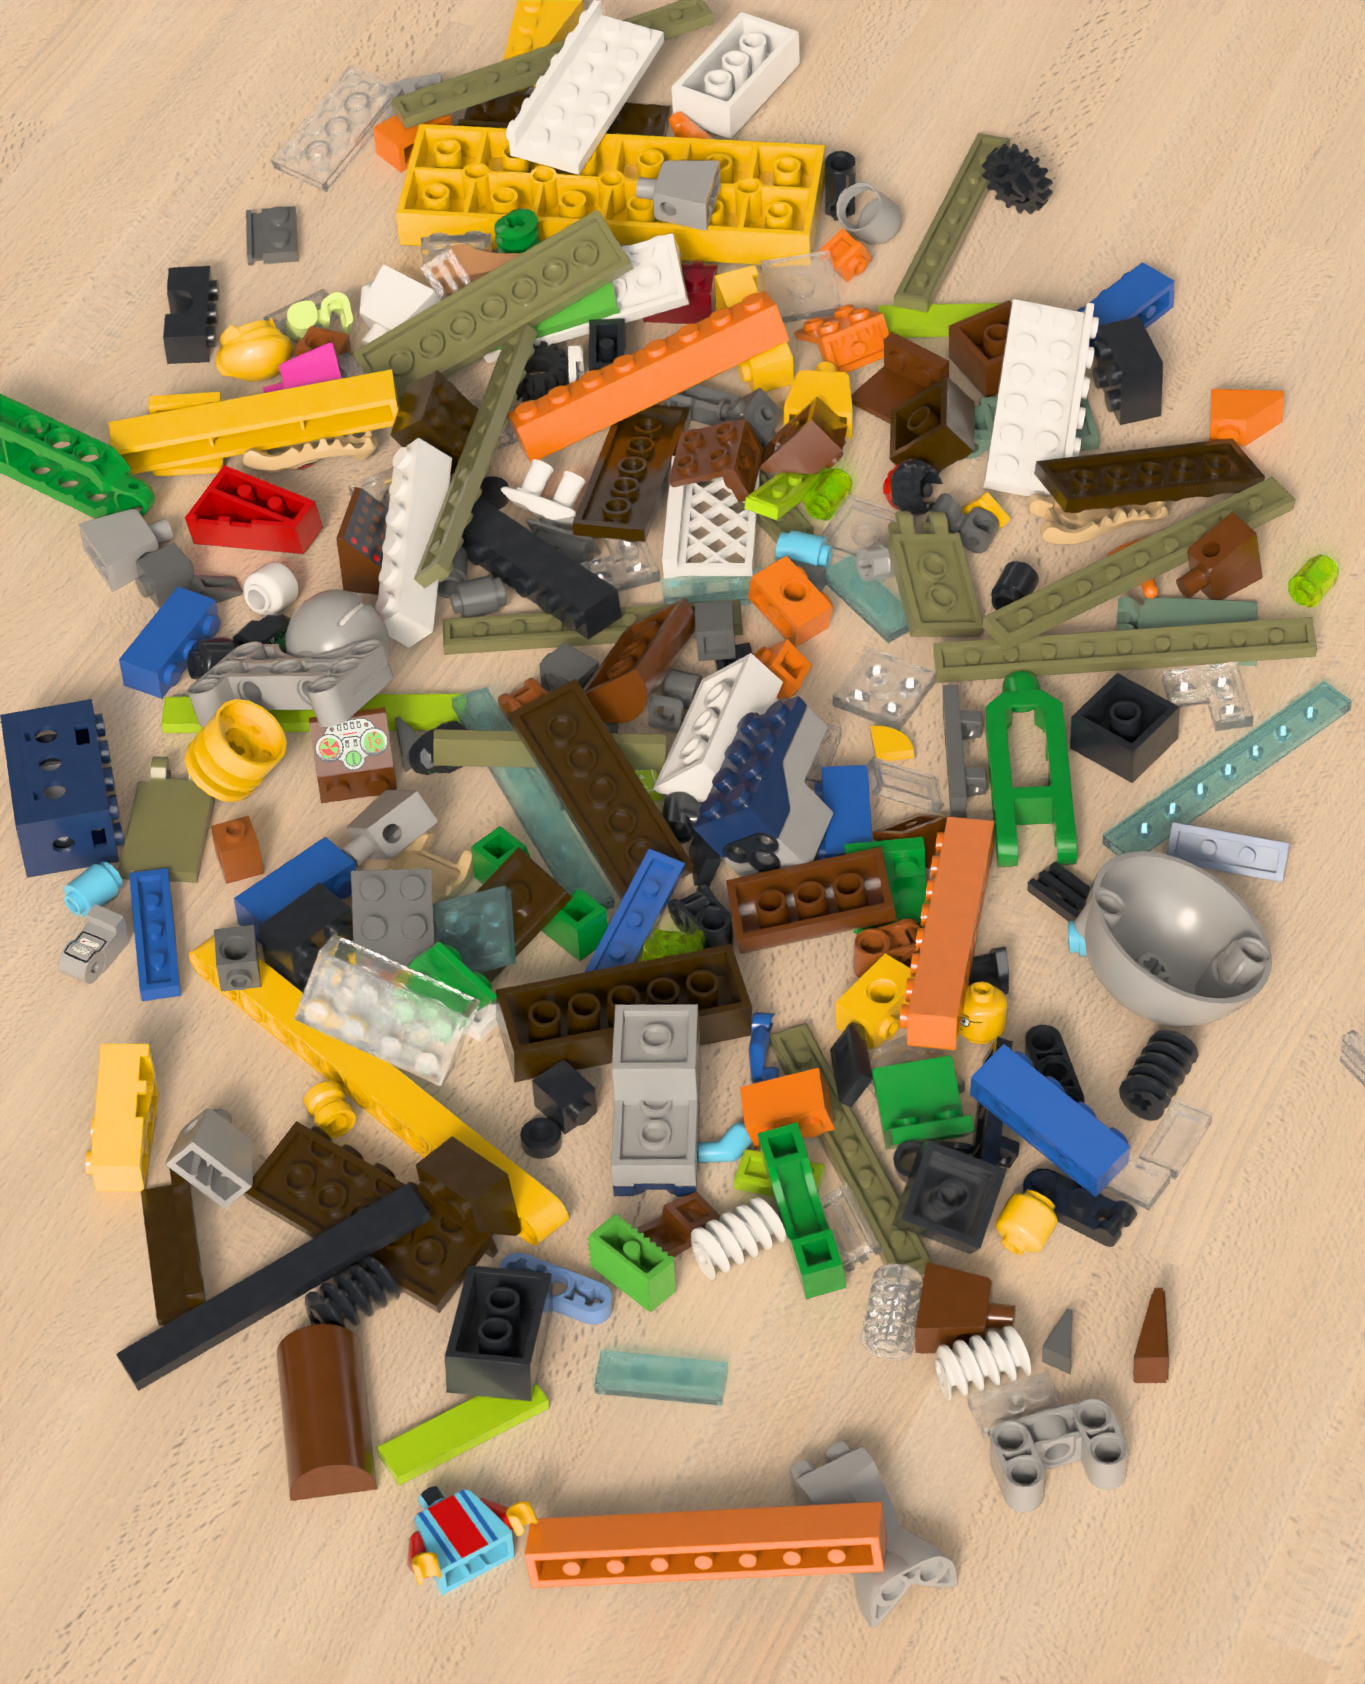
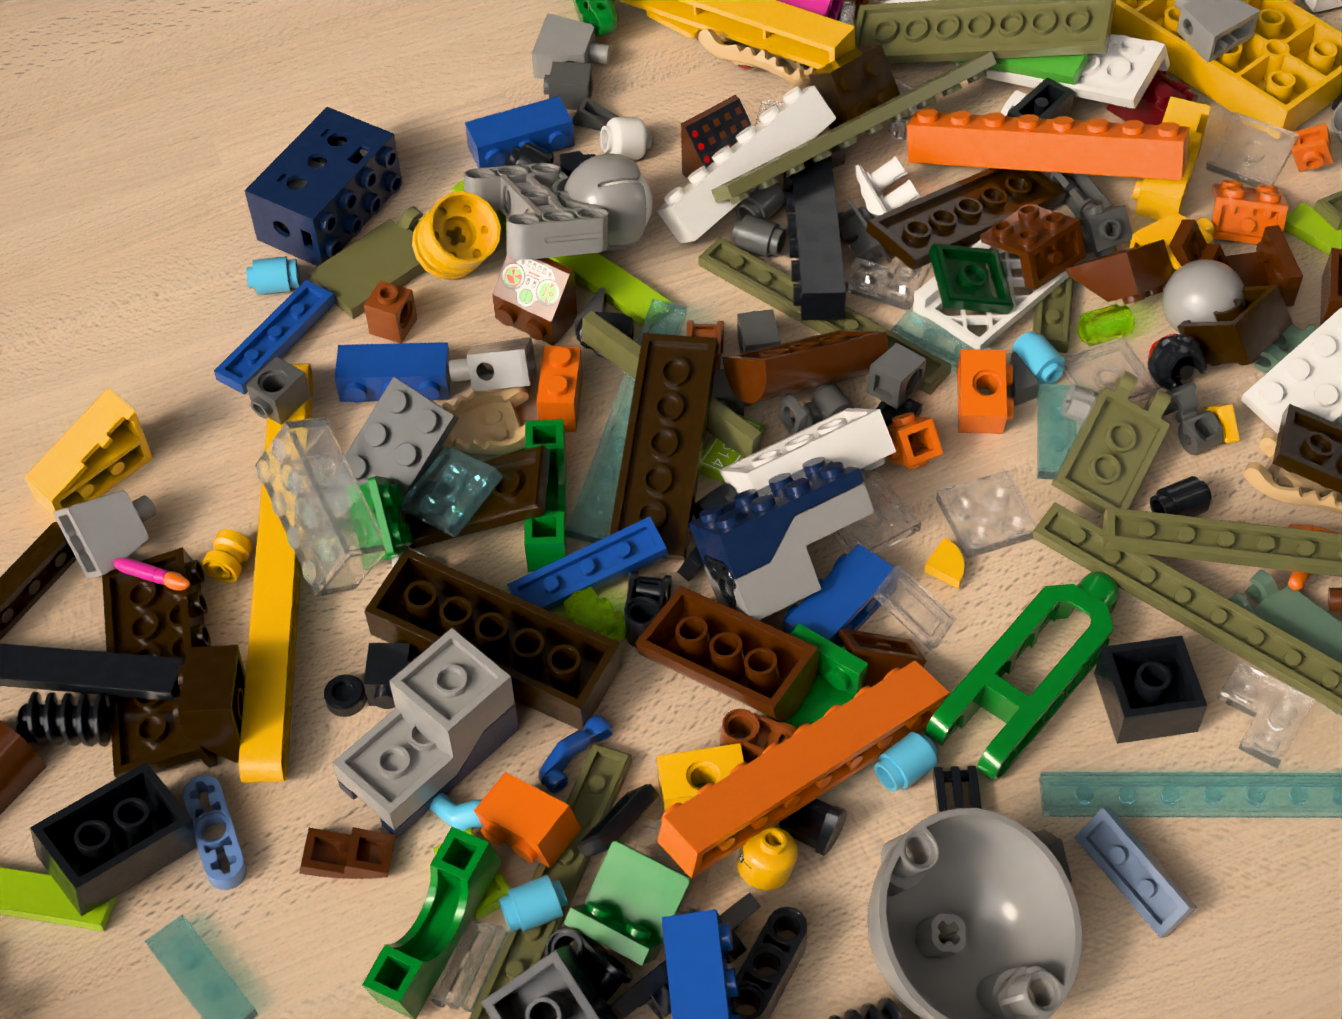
camera: 40 degrees right, 5 degrees up
(95, 945) = (226, 318): light grey leg -> none
(252, 515) = (664, 75): red wedge -> none
(296, 1154) = (172, 580): none -> dark pink piece
(300, 930) = (343, 400): black brick -> none
(460, 814) = (560, 385): none -> orange brick
(492, 492) = (850, 160): black tile -> none
(543, 360) = (988, 87): black tyre -> none
(632, 1262) = (272, 859): bright green brick -> none
(699, 519) = (970, 278): none -> dark green tile
(734, 1234) = (371, 903): white piece -> none
(780, 494) = (1062, 300): lime tile -> none
(855, 1152) = (533, 904): none -> medium azure brick
(857, 394) = (1190, 245): none -> reddish brown slope
(882, 422) = (1200, 290): none -> light grey piece
(960, 726) = (968, 633): dark grey hinge -> none
(1006, 890) = (906, 761): none -> medium azure brick

